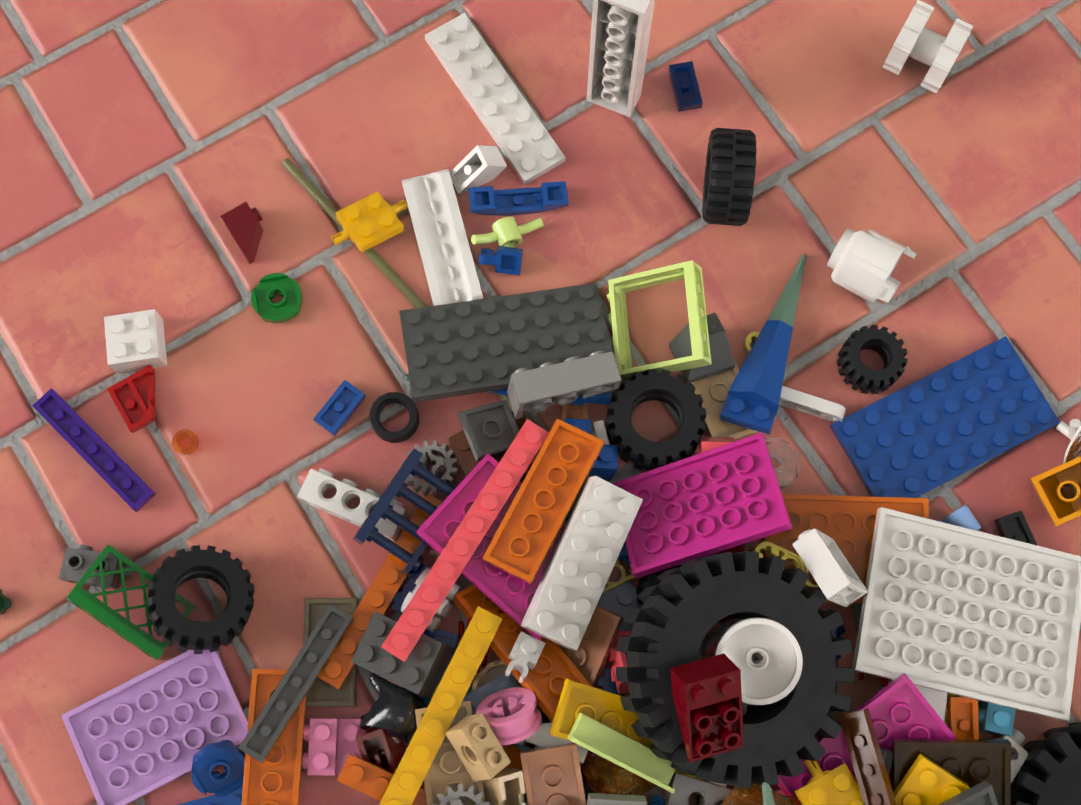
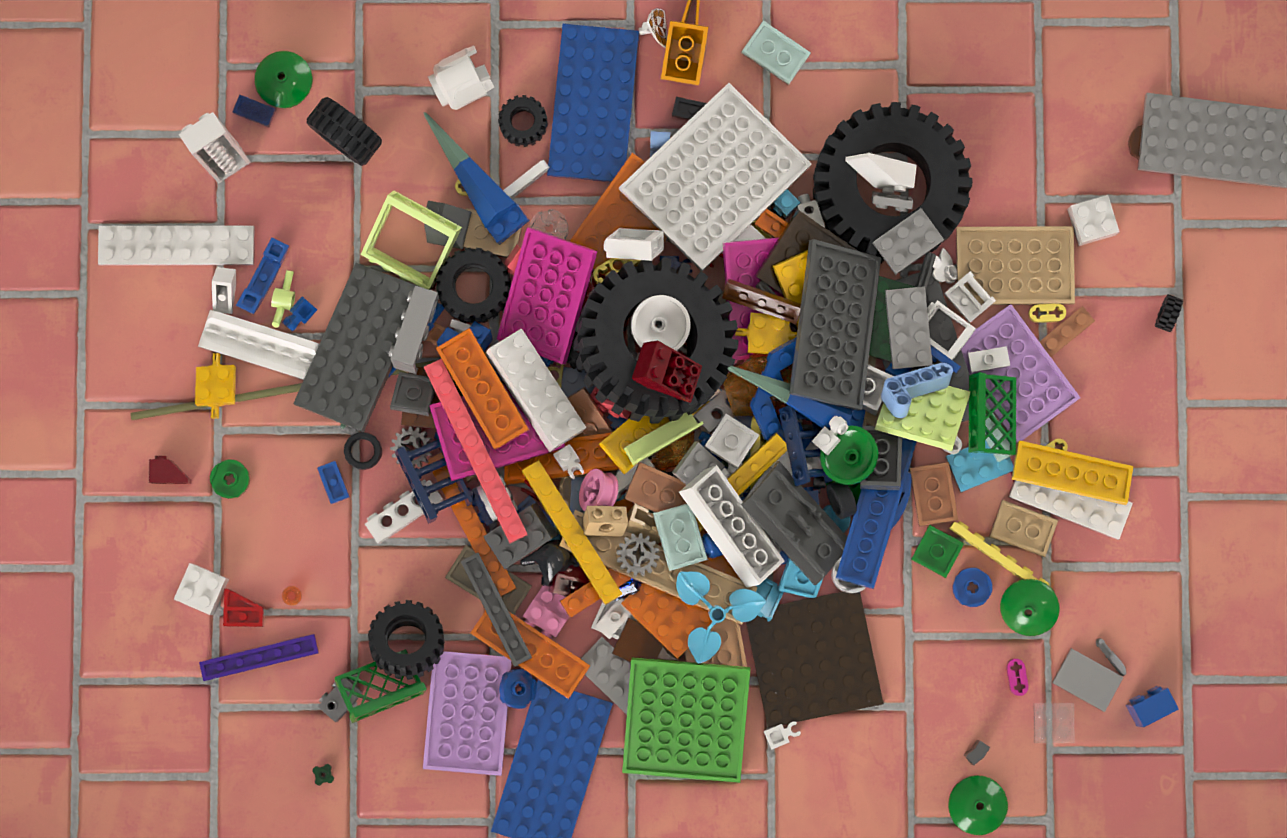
camera: 55 degrees left, 10 degrees up
(736, 107) = (291, 89): none -> green dish

